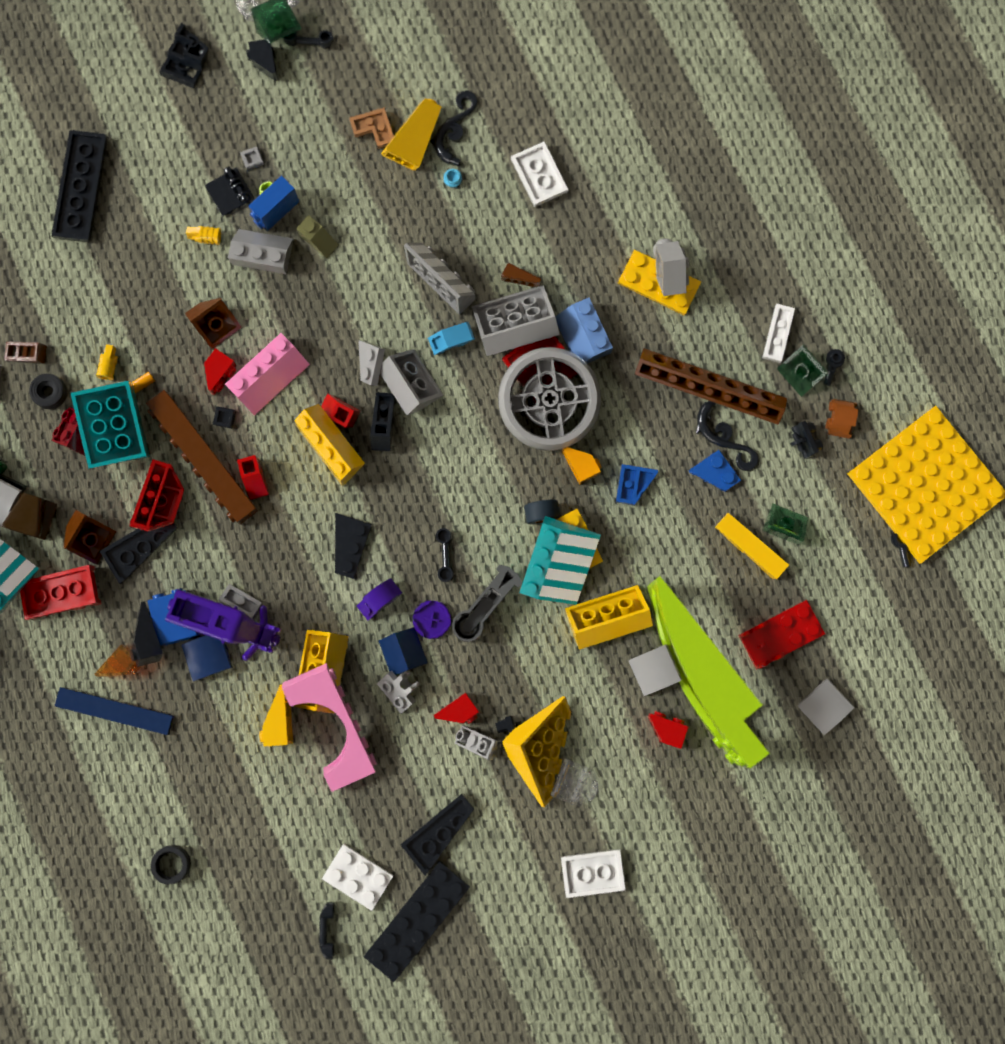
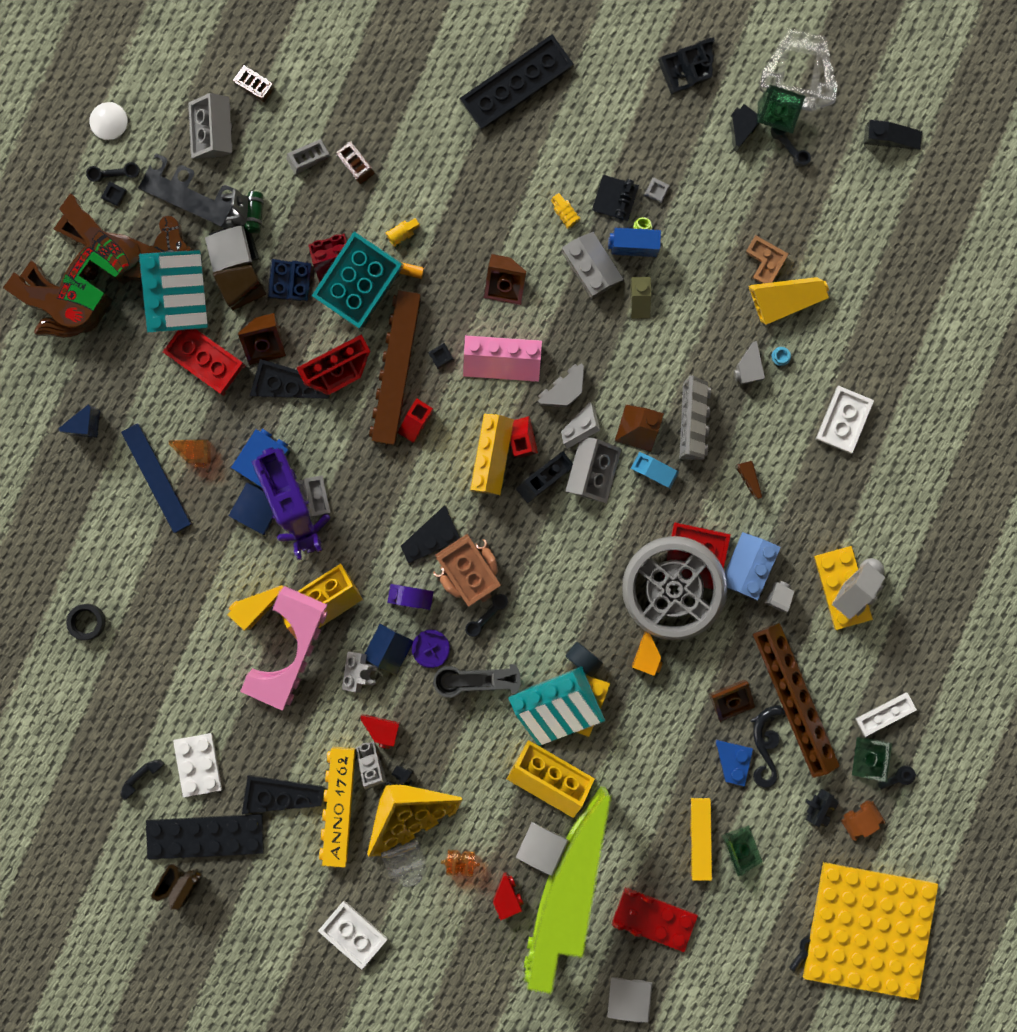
camera: 50 degrees right, 5 degrees up
(19, 728) = (83, 423): none -> dark blue slope
(37, 391) = (337, 198): black tyre -> none
(63, 477) = (289, 280): none -> dark blue slope
(145, 643) = (224, 456): black slope -> none
(218, 369) = (471, 318): red slope -> none
(333, 350) = (565, 389): none -> light grey slope
(398, 536) = (468, 570): none -> nougat torso
(410, 321) = (639, 427): none -> reddish brown slope
(433, 976) = (176, 885): none -> dark brown piece
(439, 205) = (750, 366): none -> light grey slope
(451, 124) = (822, 315): black plant -> none
(487, 796) = (338, 809): none -> yellow brick
(515, 320) = (712, 506): light grey slope -> none
(611, 741) = (460, 863): none -> clear orange wheel
(625, 331) = (780, 596): none -> light grey slope
(633, 483) = (668, 707): blue wing -> none
(670, 432) = (732, 700): none -> reddish brown slope

